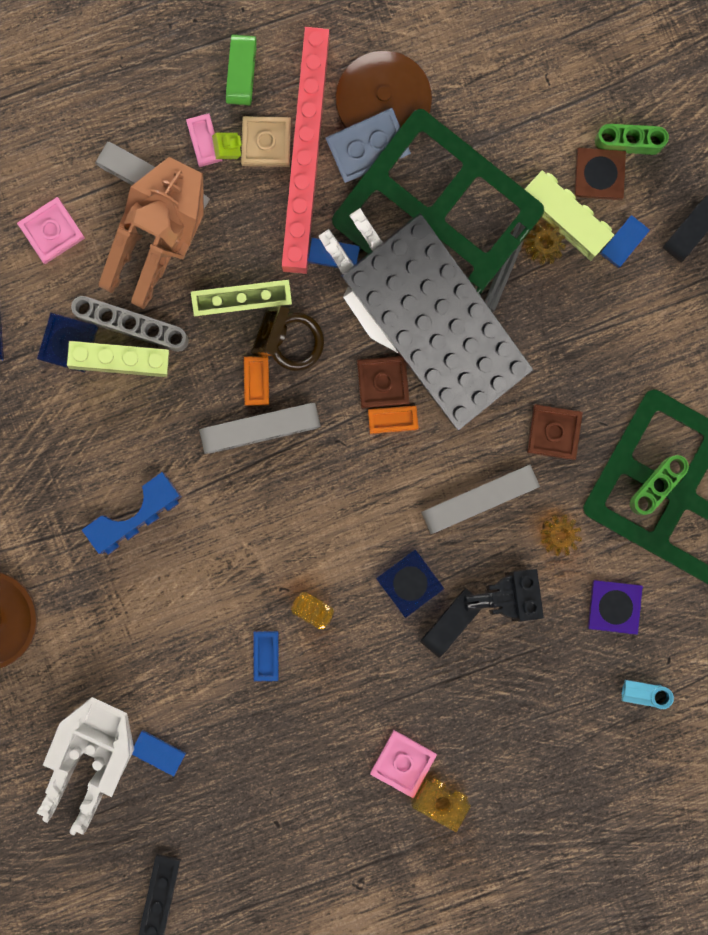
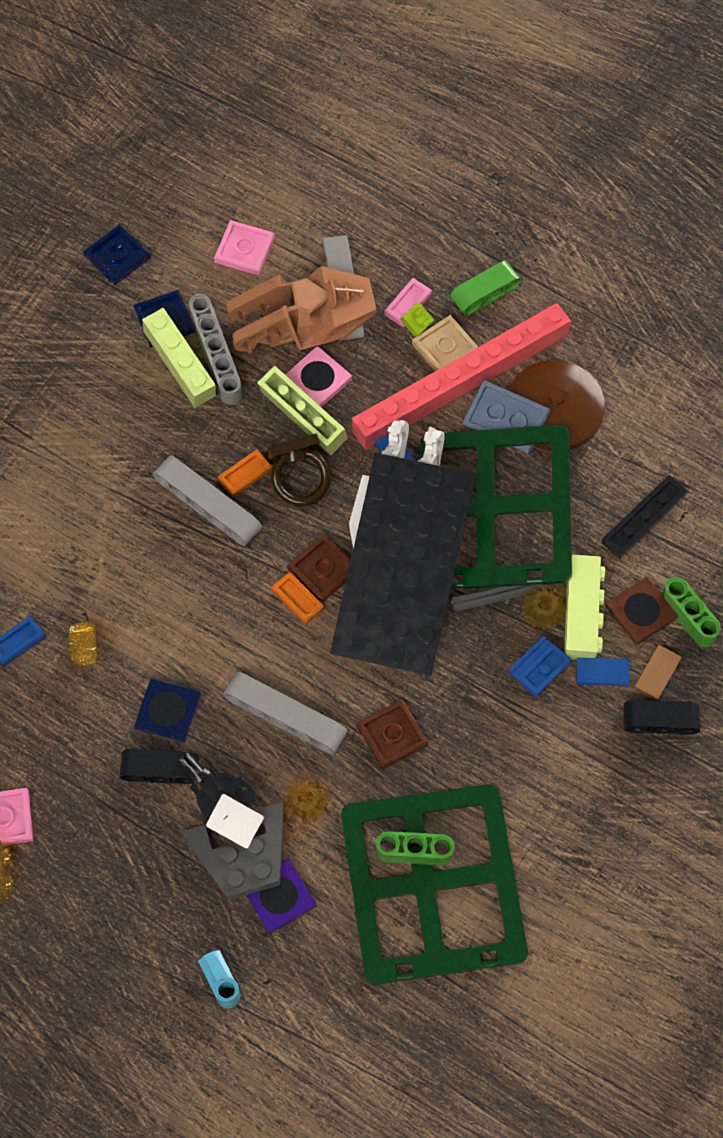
camera: 55 degrees right, 20 degrees down
(107, 533) = (89, 464): blue arch -> none
(216, 262) = (319, 376): none -> bright pink tile
(529, 109) = (644, 516): none -> black plate
(549, 599) = (240, 823): none -> white sticker
(576, 615) = (239, 869): none -> dark grey wing
(587, 284) = (539, 666): none -> blue plate
(656, 202) = (657, 673): none -> medium nougat tile

